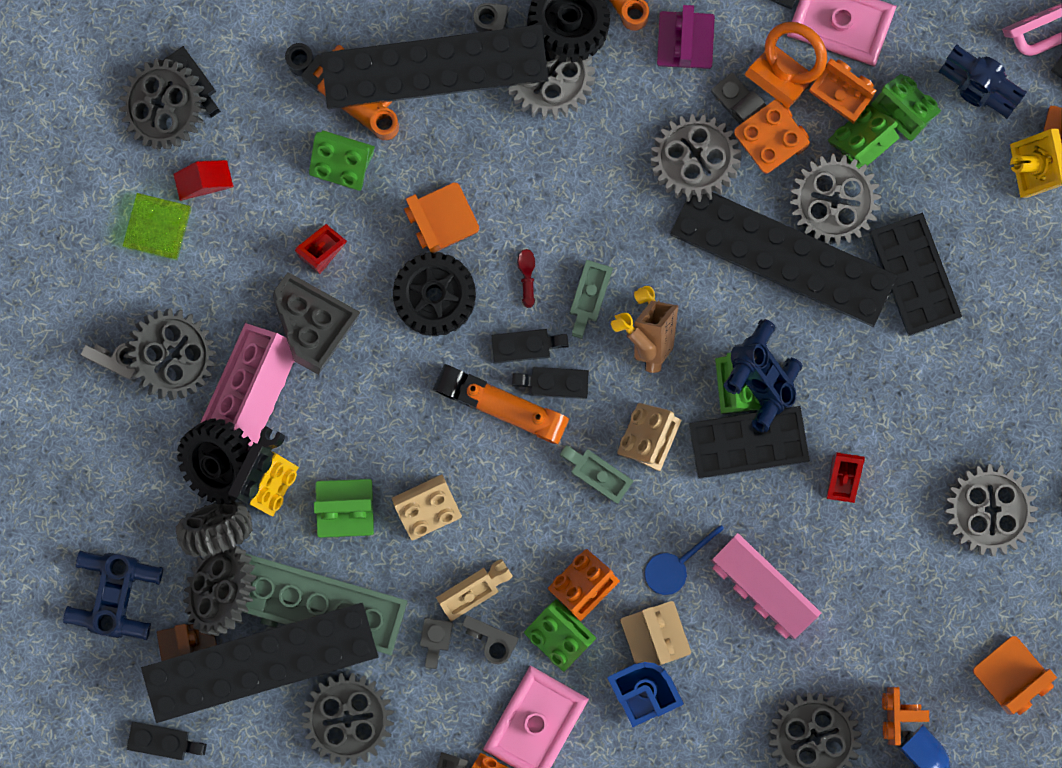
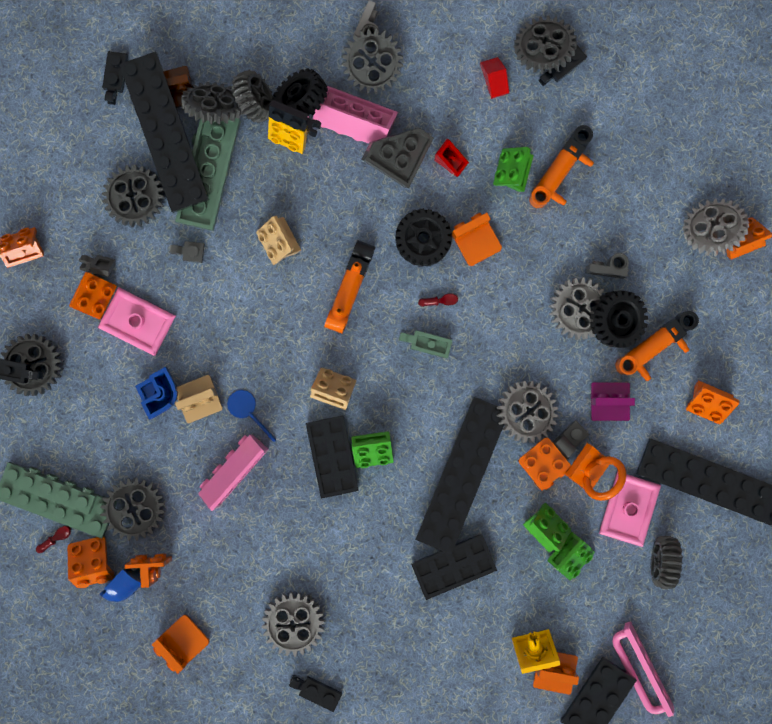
camera: 80 degrees right, 5 degrees up
(113, 595) = (209, 35): dark blue piece -> none
(157, 226) = (461, 48): clear neon green plate -> none
(344, 508) = (275, 185): bright green bracket -> none
(435, 66) = (581, 227): black plate -> none
(473, 590) = (223, 275): tan plate -> none
(477, 629) = (197, 279): dark grey plate -> none
(526, 345) = (391, 301): black plate -> none
(554, 382) = (367, 323): black plate -> none
(559, 635) = (195, 335): bright green bracket -> none
(583, 584) = (230, 348): orange bracket -> none
(598, 474) = (305, 355): sand green plate -> none
(652, 331) = (404, 388): medium nougat torso -> none
(763, 375) = (376, 464): dark blue piece -> none
(840, 173) = (521, 512): light grey gear -> none
(843, 90) = (580, 512): orange bracket -> none
(844, 477) = (311, 523): red slope -> none
(982, 81) = (591, 610): dark blue piece -> none

